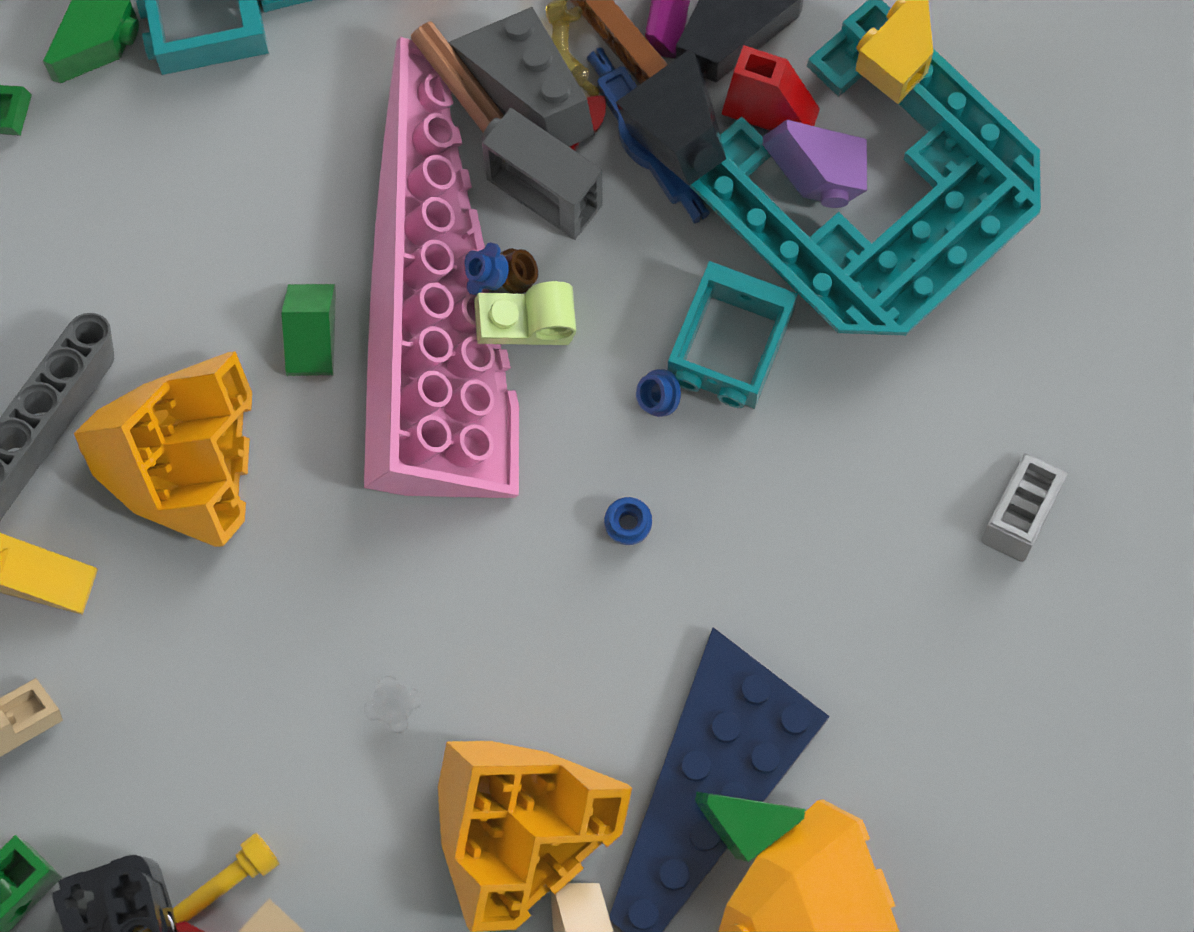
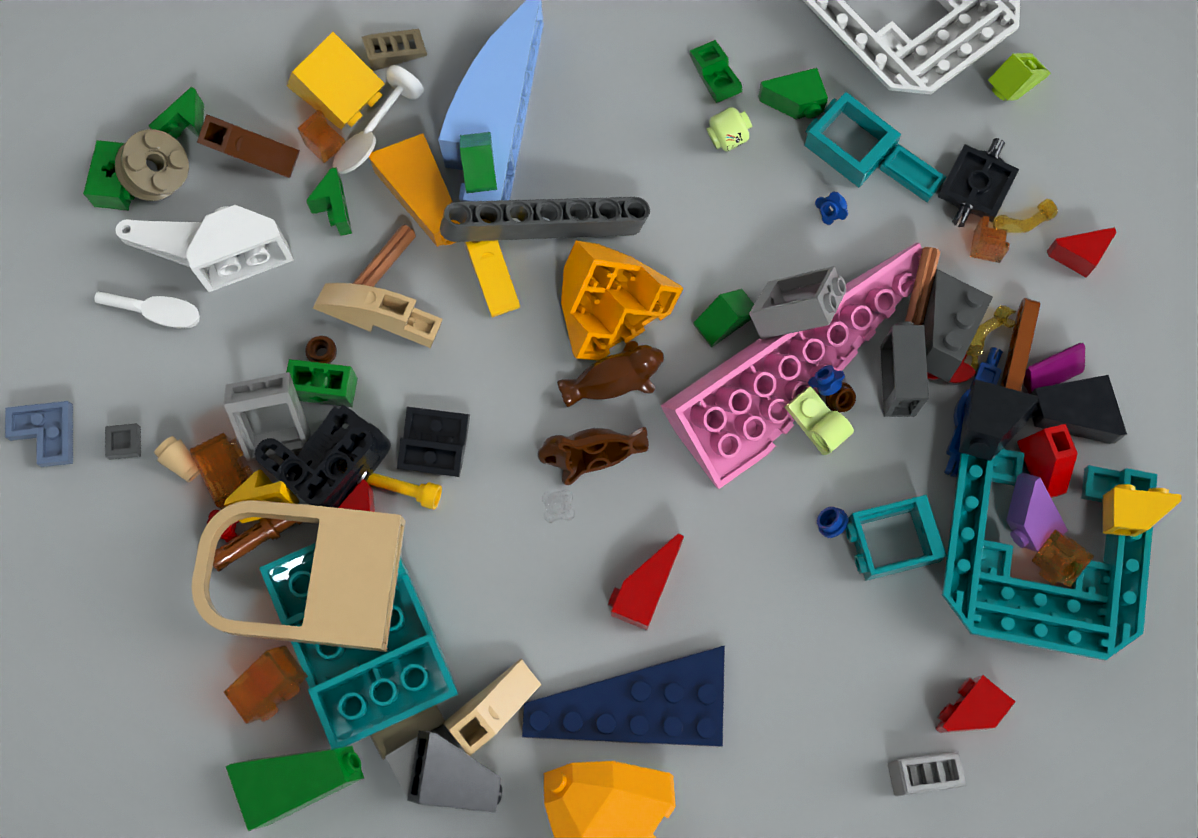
camera: 55 degrees right, 0 degrees up
(70, 145) = (729, 129): none -> yellowish green head
(190, 803) = (433, 441): none -> black slope
(272, 91) = (838, 204): none -> blue plate
(279, 515) = (614, 375): none -> reddish brown animal
(354, 614) = (590, 450): none -> reddish brown animal
(367, 229) = (798, 302): none -> light grey window
(520, 826) = (539, 619): light orange brick -> none
(578, 678) = (643, 588): none -> red slope
(632, 507) = (749, 547): blue plate -> none
(747, 824) = (628, 744): green slope -> none
(893, 171) = (1061, 559): none -> clear orange brick
(992, 392) = (978, 707): none -> red slope

